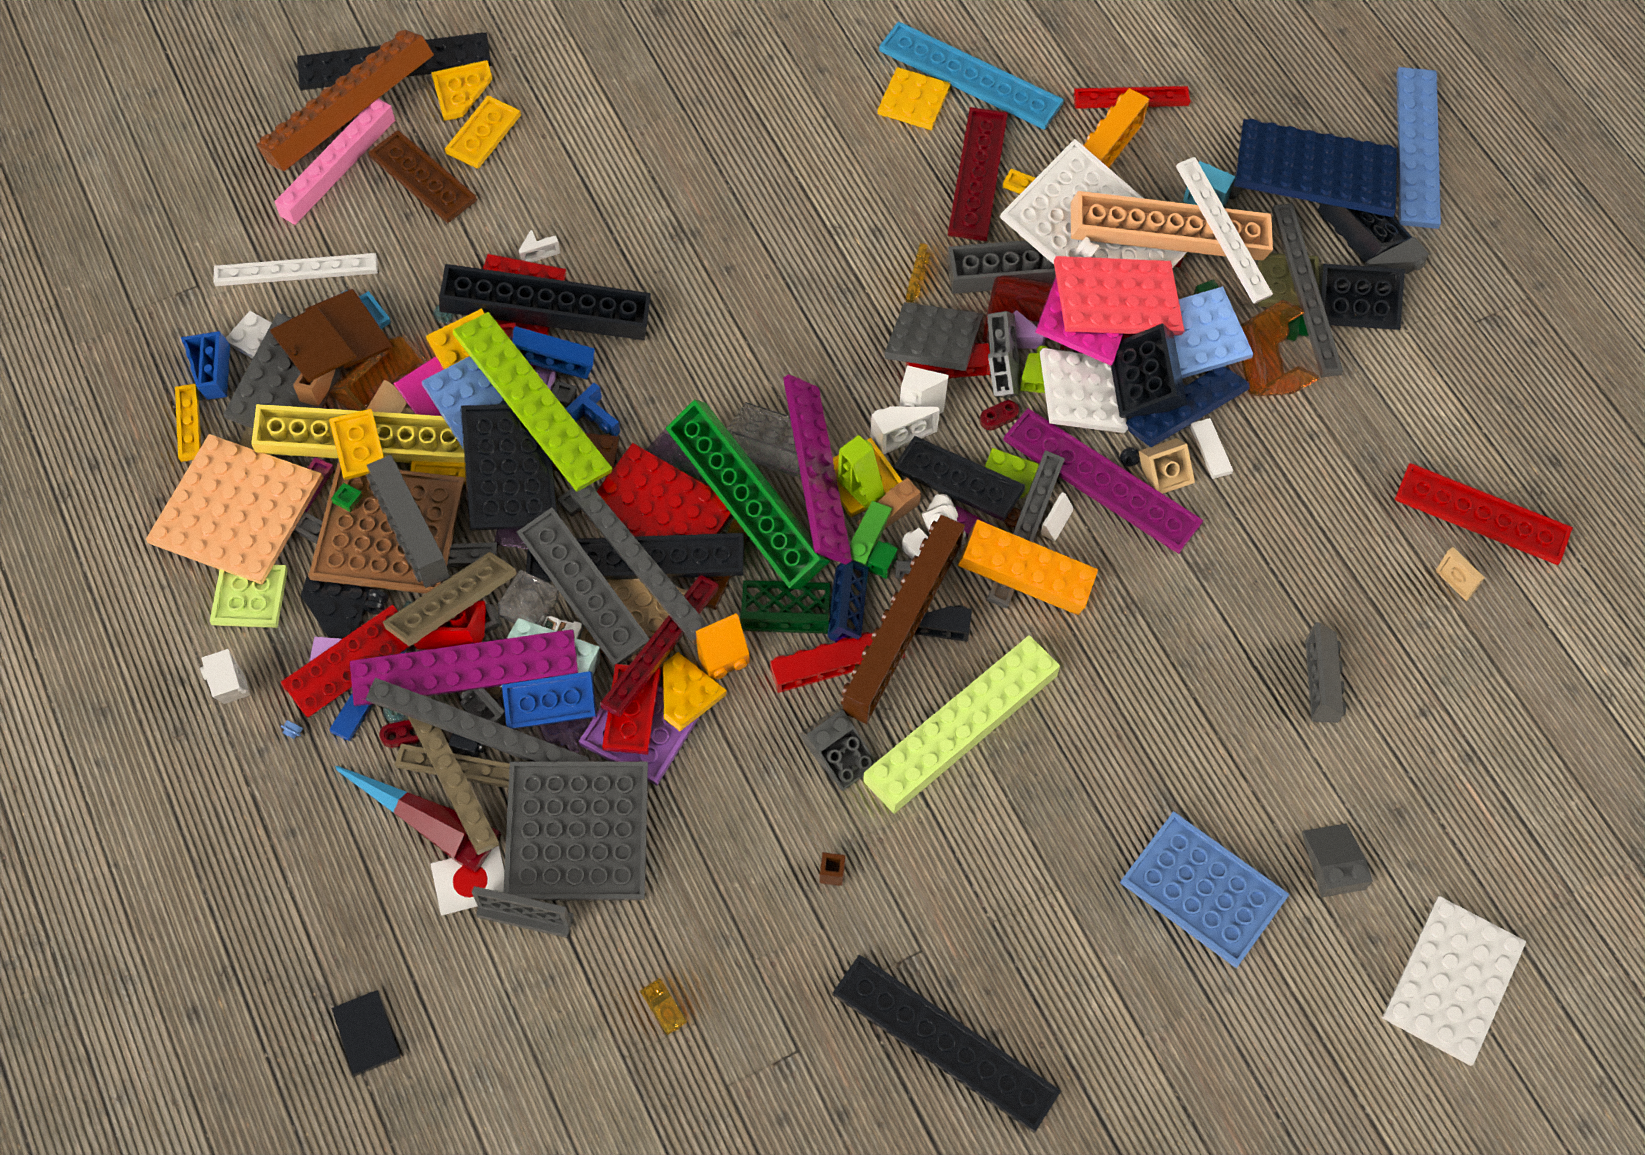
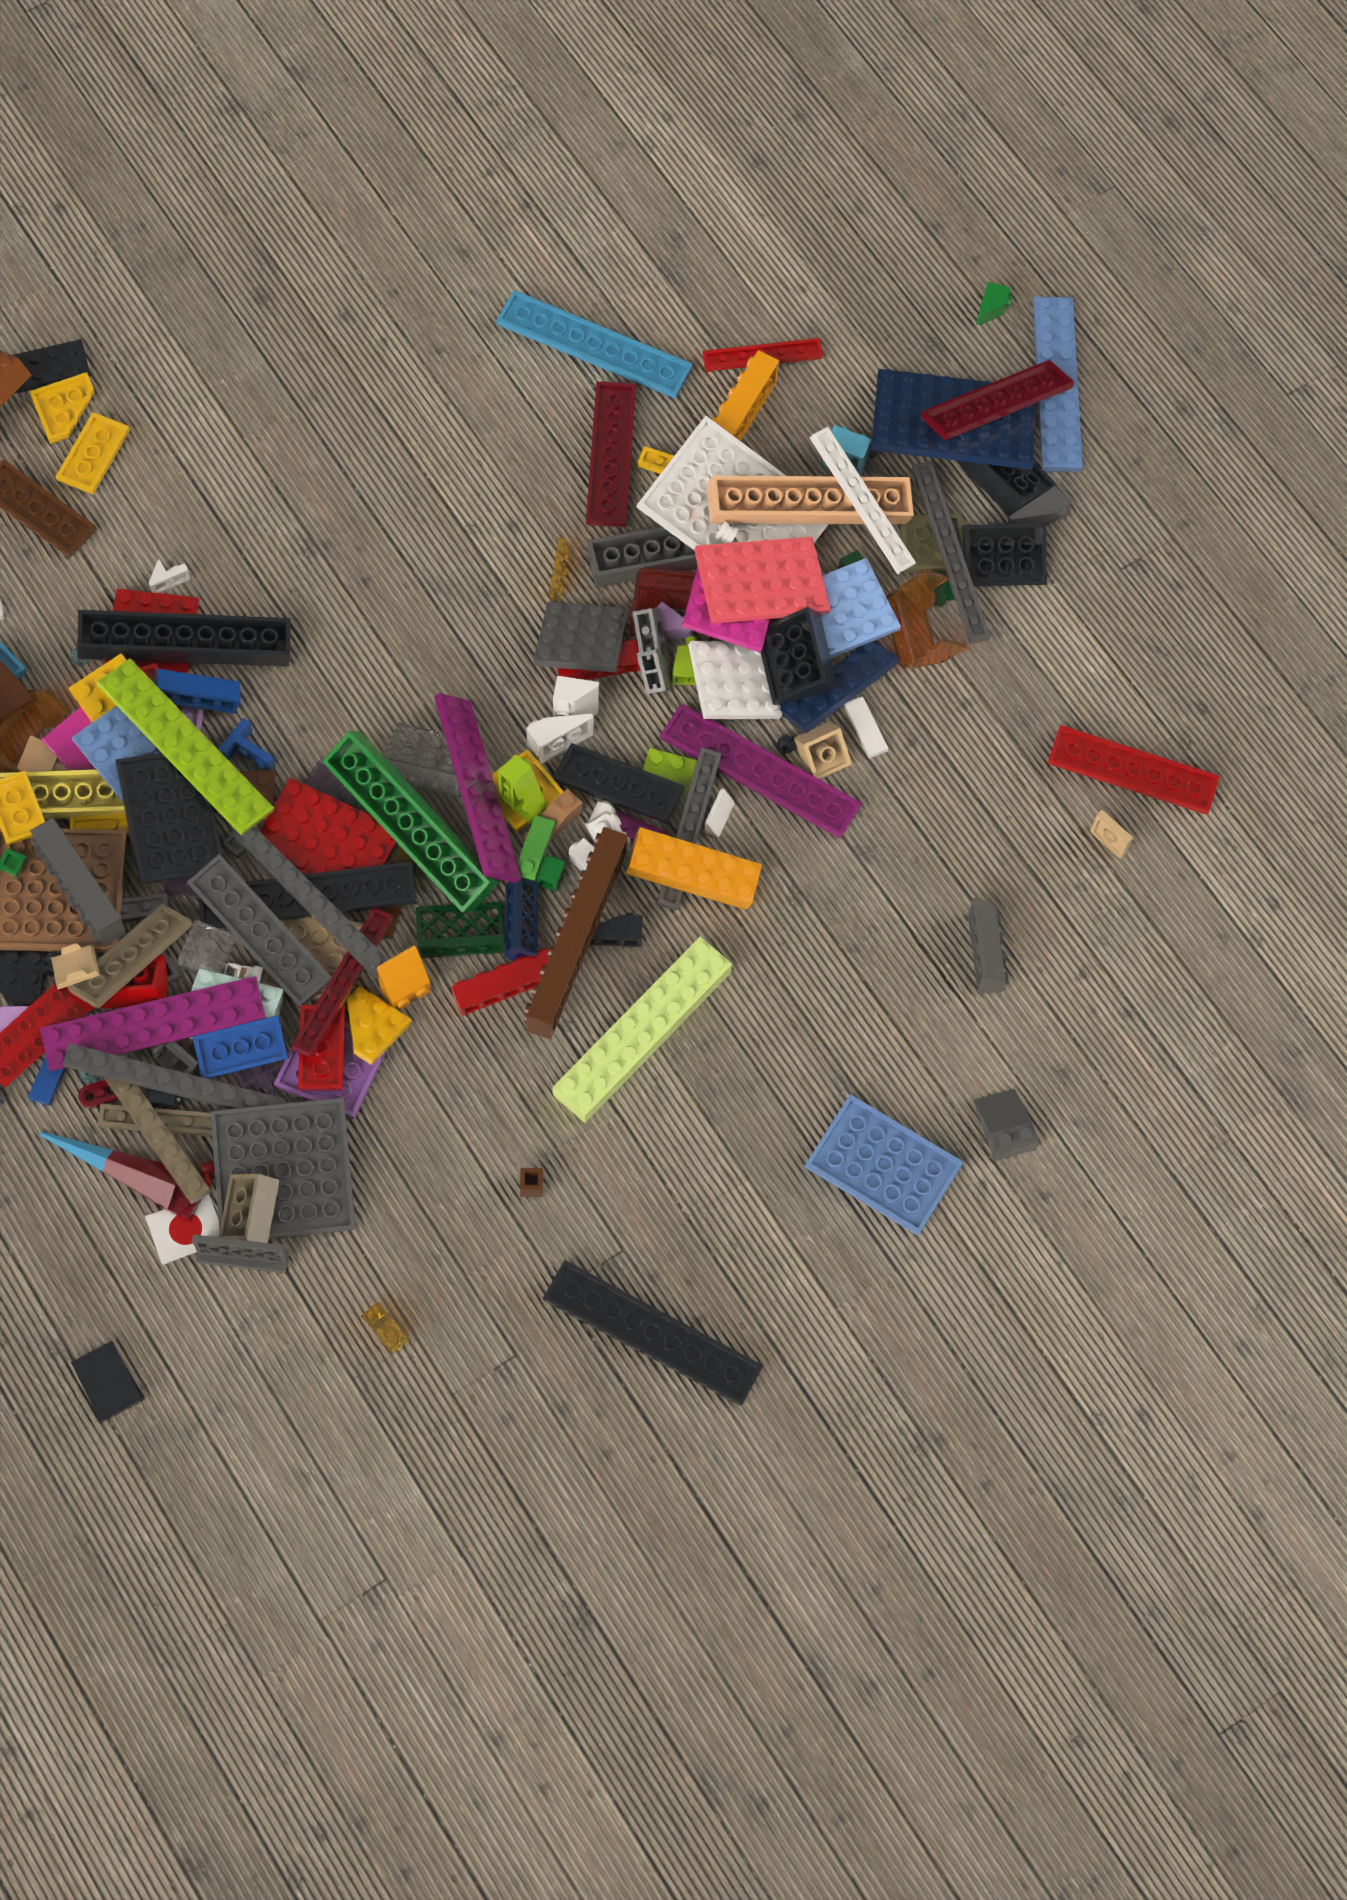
camera: 10 degrees left, 5 degrees up
(393, 602) = (75, 965): none -> tan piece
(499, 822) = (207, 1170): none -> red hand
(537, 864) = (249, 1207): none -> dark tan slope
(564, 392) = (214, 731): dark grey plate -> none
(838, 748) = (525, 1065): dark grey slope -> none
(902, 567) = (571, 881): dark grey plate -> none
(914, 98) = (538, 375): yellow plate -> none
(1000, 415) = (654, 711): dark red plate -> none
(1011, 522) = (674, 822): reddish brown plate -> none
(1359, 69) = (994, 302): none -> green slope
(1360, 151) = (997, 399): none -> dark red plate
(1454, 980) = (1120, 1225): white plate -> none

